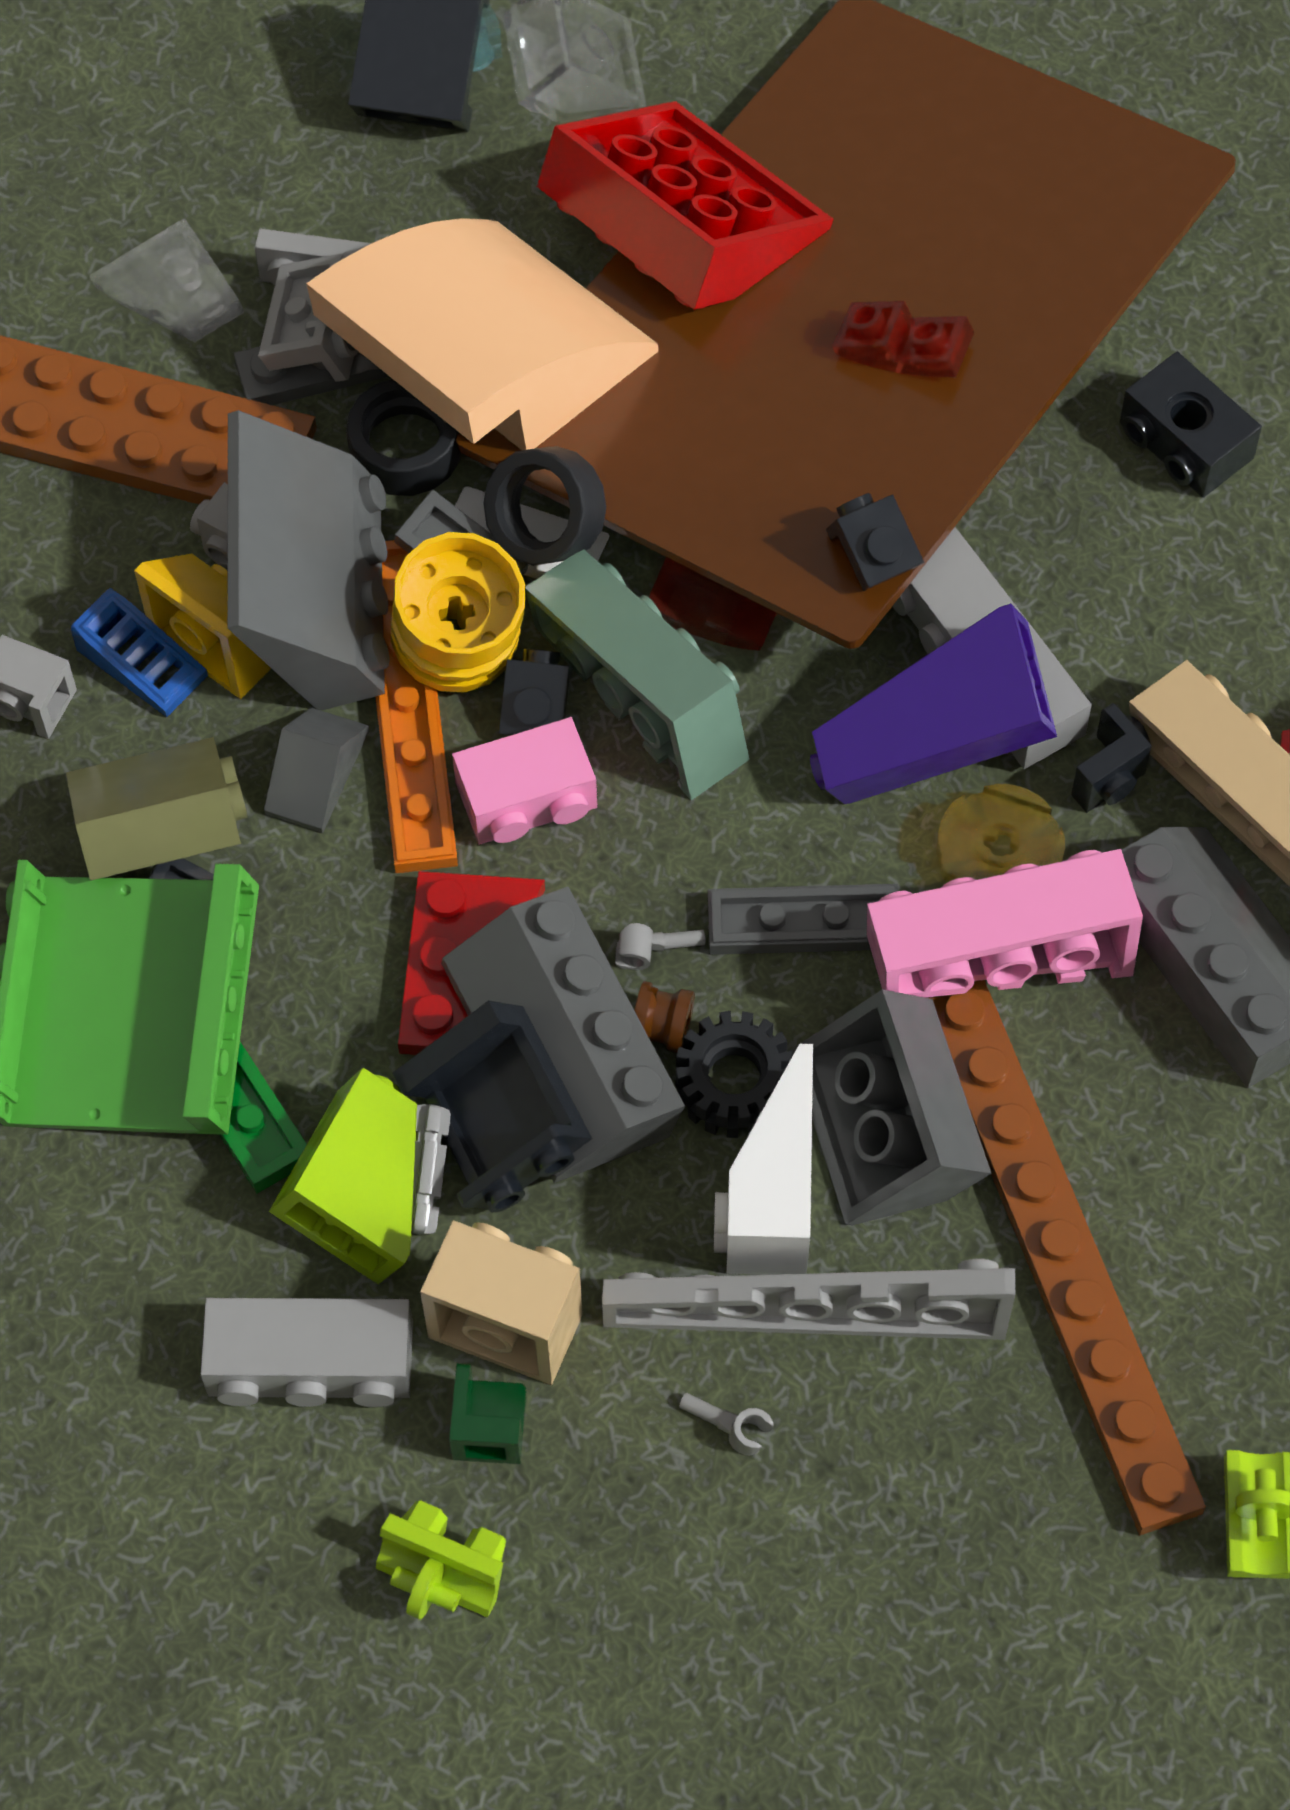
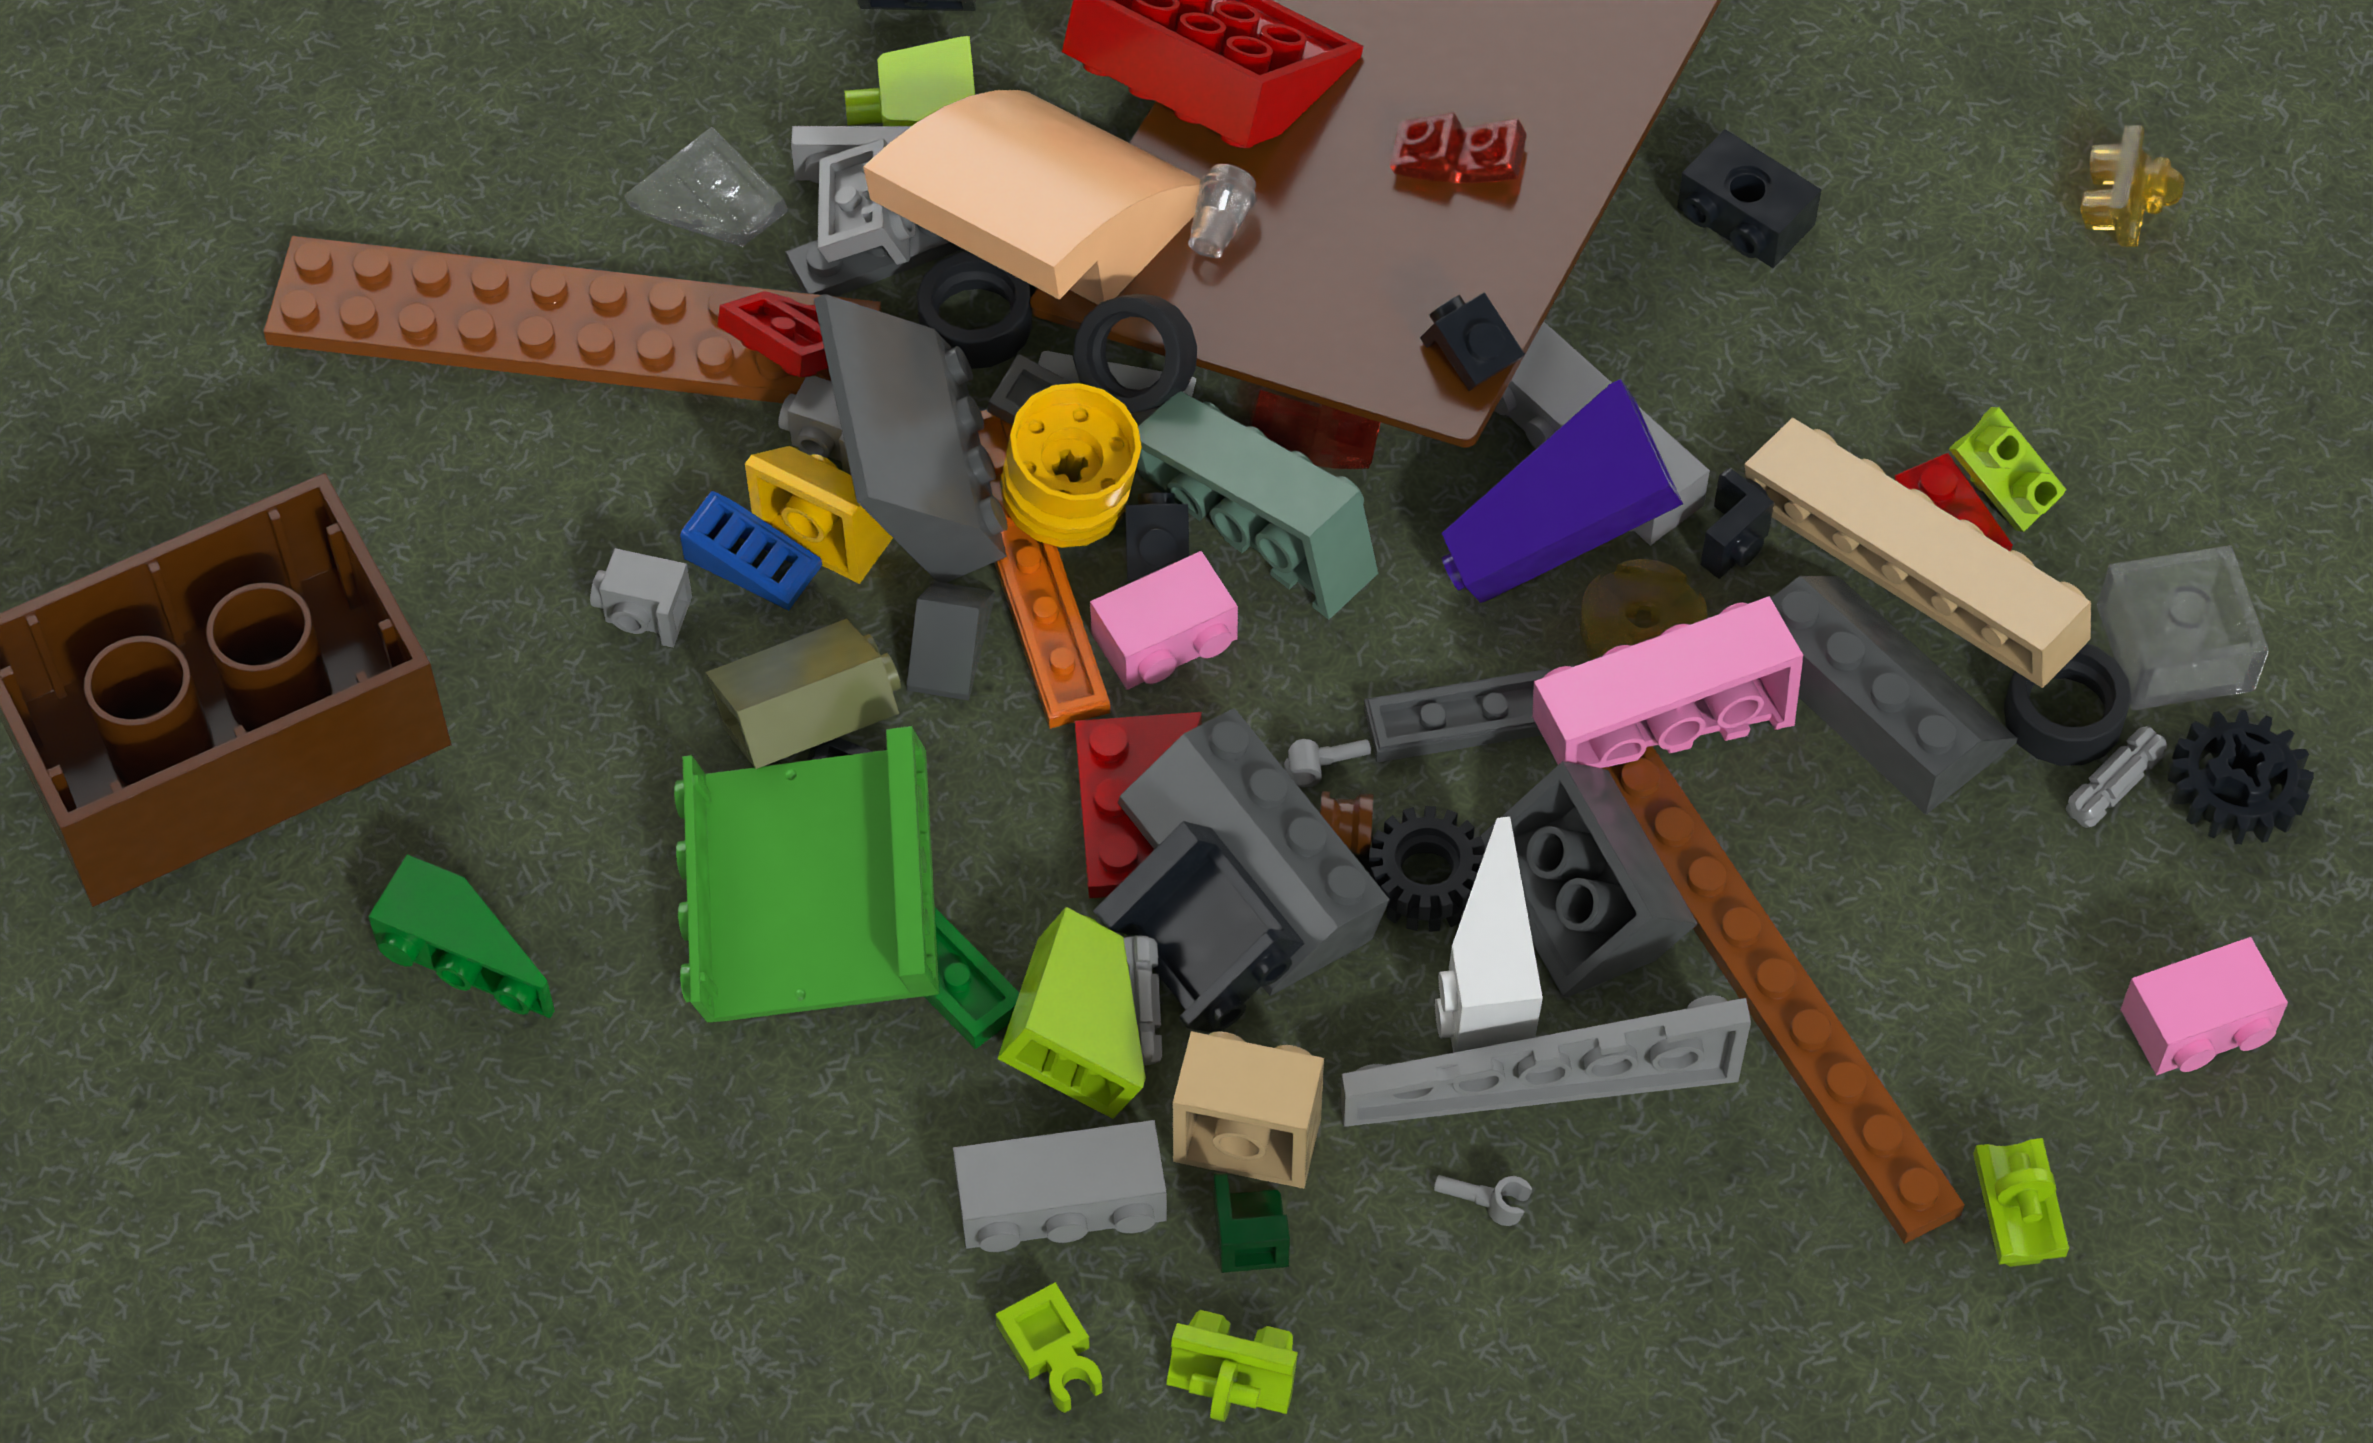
camera: 10 degrees left, 5 degrees down
(196, 431) = (778, 330): none -> red wing
(263, 1506) = (1048, 1338): none -> lime plate
(390, 200) = (914, 84): none -> lime torso
(657, 369) = (1221, 207): none -> clear cone

